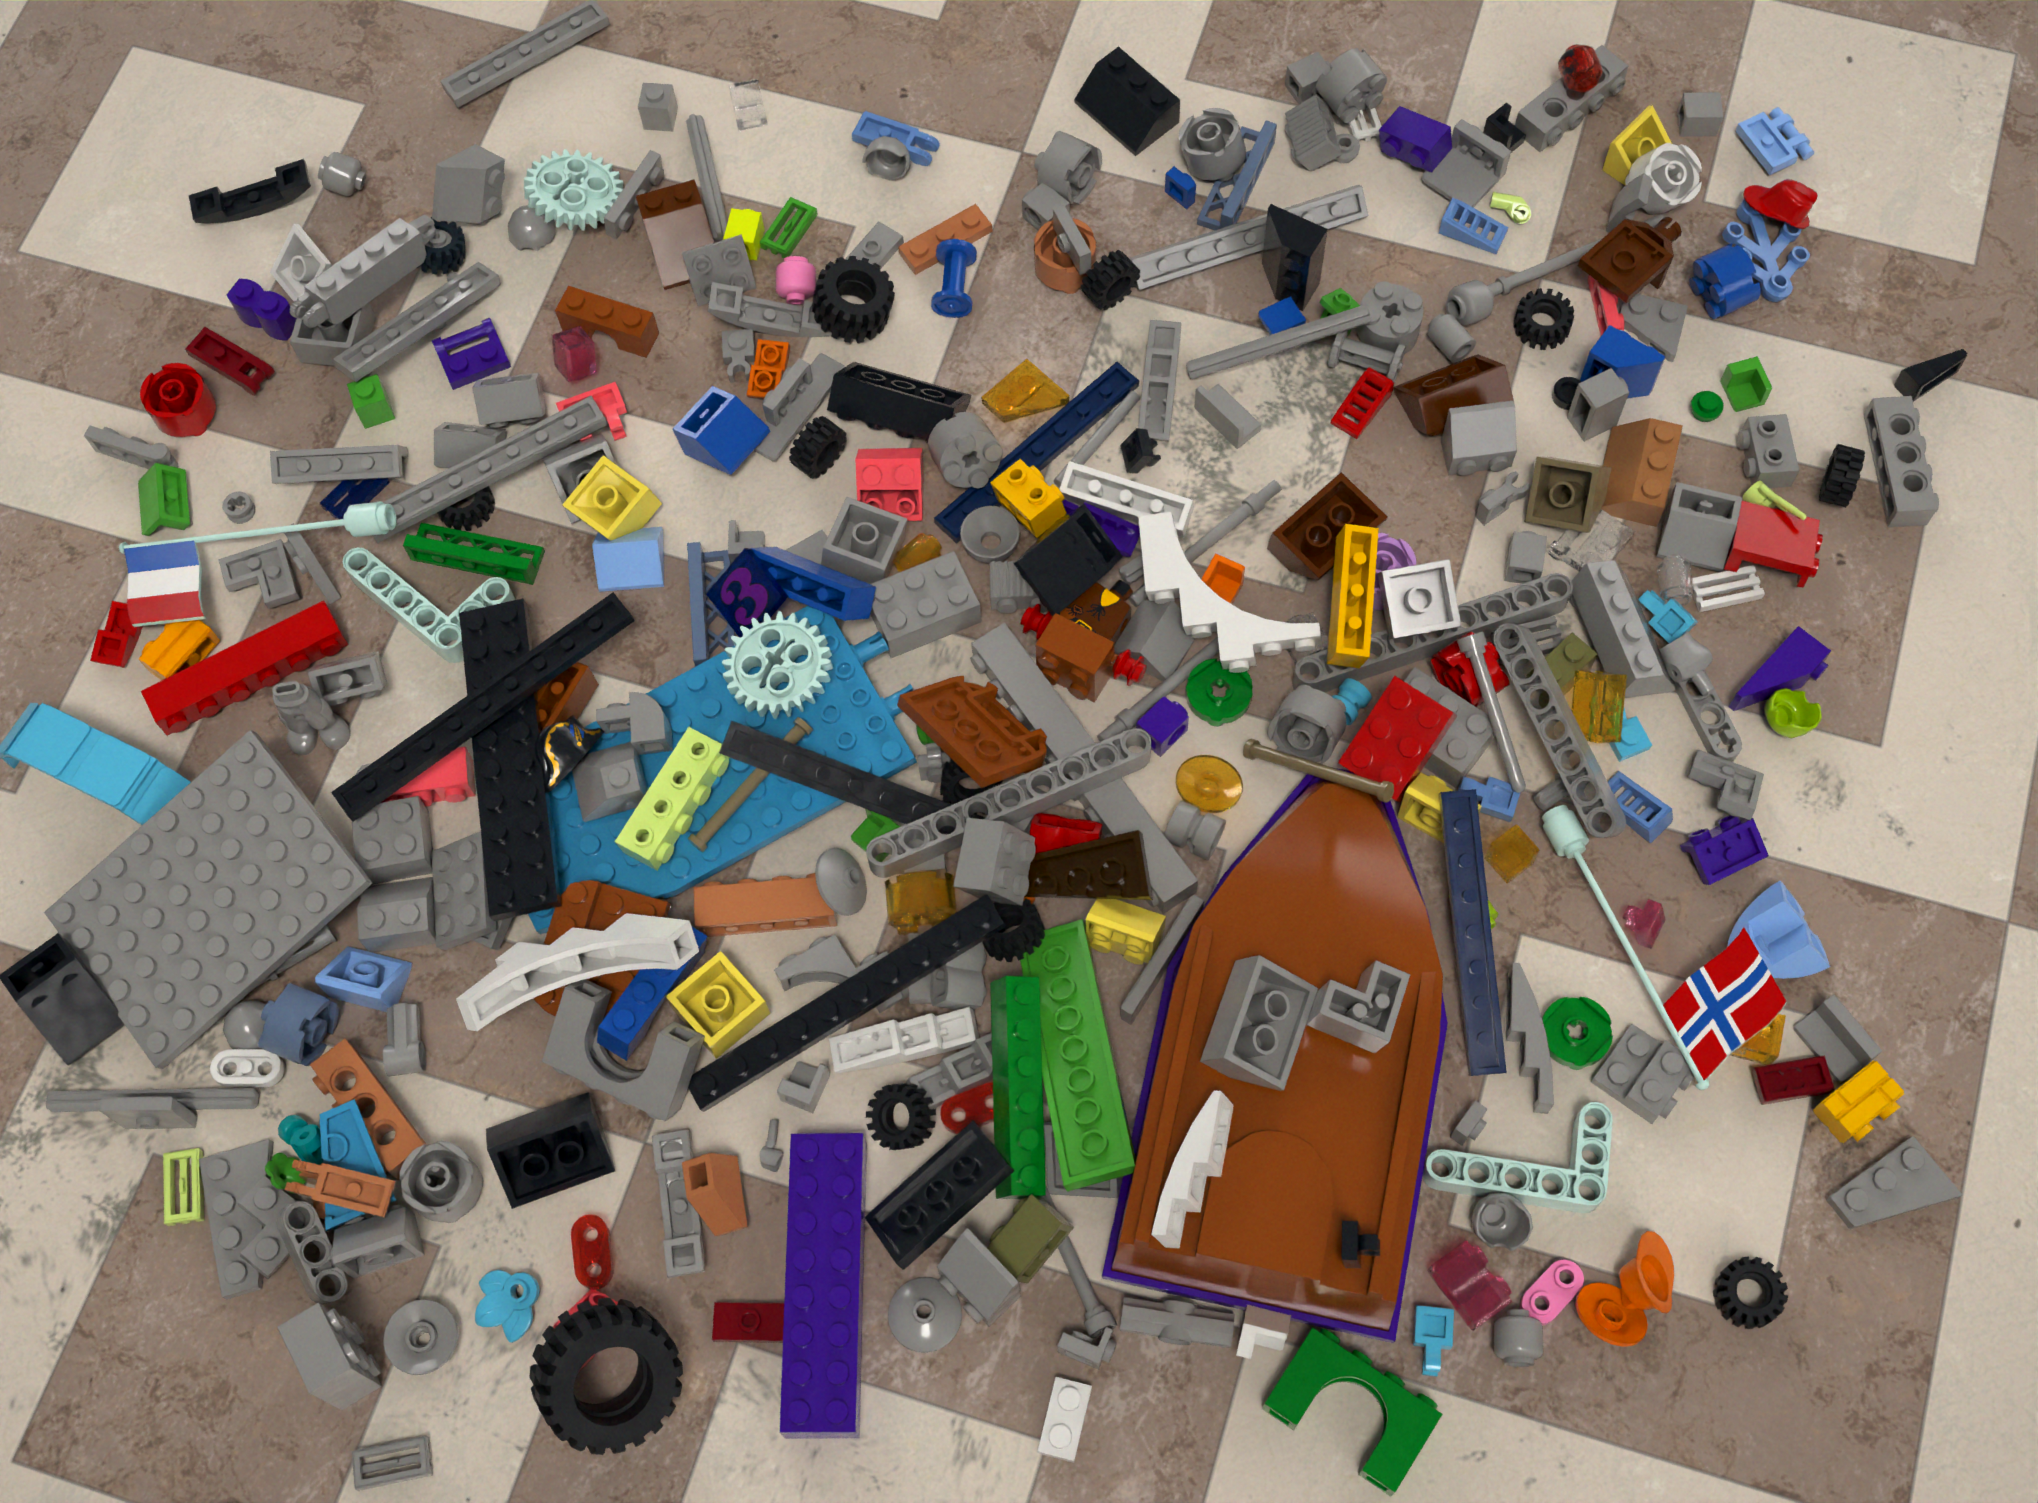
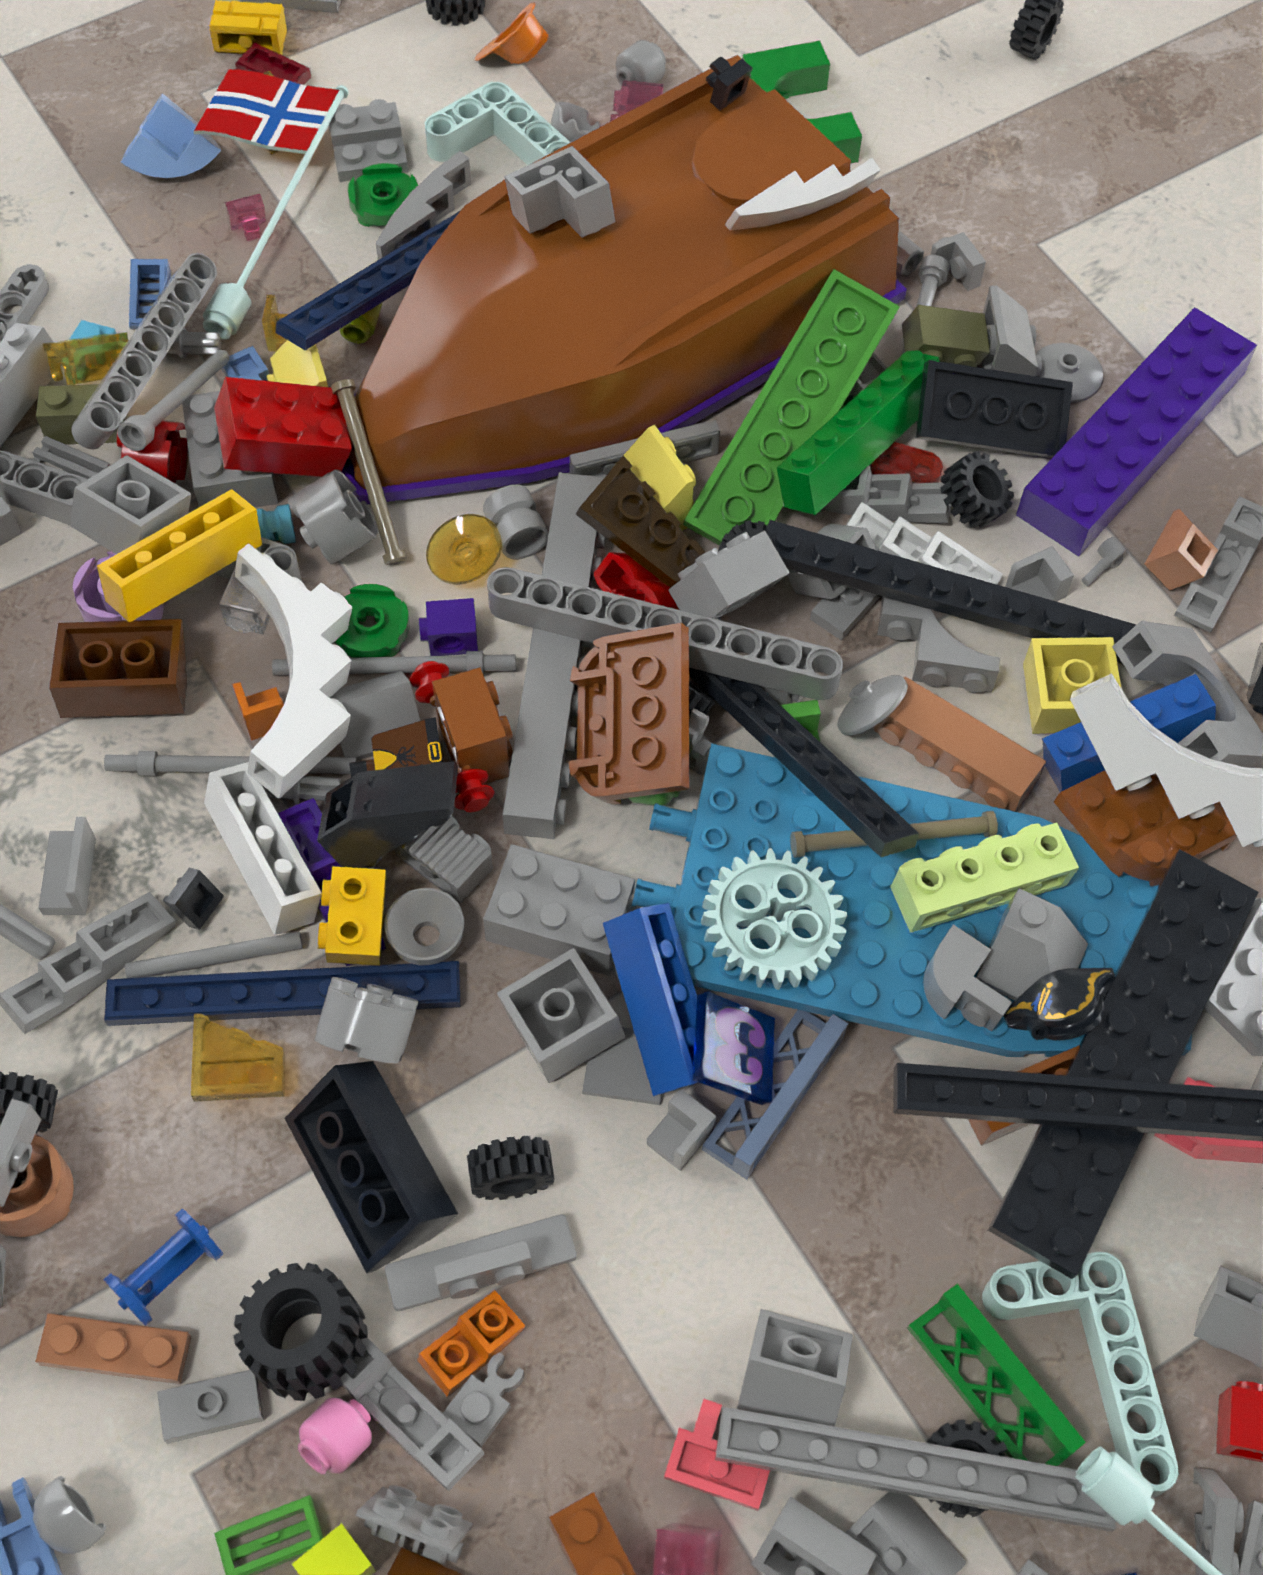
camera: 145 degrees left, 5 degrees down
(612, 501) = (795, 1293): light yellow slope -> none
(630, 560) = (815, 1231): light blue slope -> none
(720, 431) = (598, 1281): blue slope -> none
(748, 1322) = (1218, 455): dark red plate -> none
(891, 480) = (467, 1073): coral slope -> none
(917, 551) = (511, 964): clear yellow brick -> none
(919, 901) = (819, 619): clear yellow brick -> none
(1064, 1419) = (1013, 241): white plate -> none
(1259, 1023) = (654, 246): light grey slope -> none
(1553, 1291) = (584, 83): bright pink plate -> none
(1605, 1316) = (568, 36): orange dish -> none
(1725, 848) = (124, 222): dark purple bracket -> none
(1738, 784) = (58, 245): light grey plate -> none
(1839, 1037) = (206, 67): light grey panel -> none

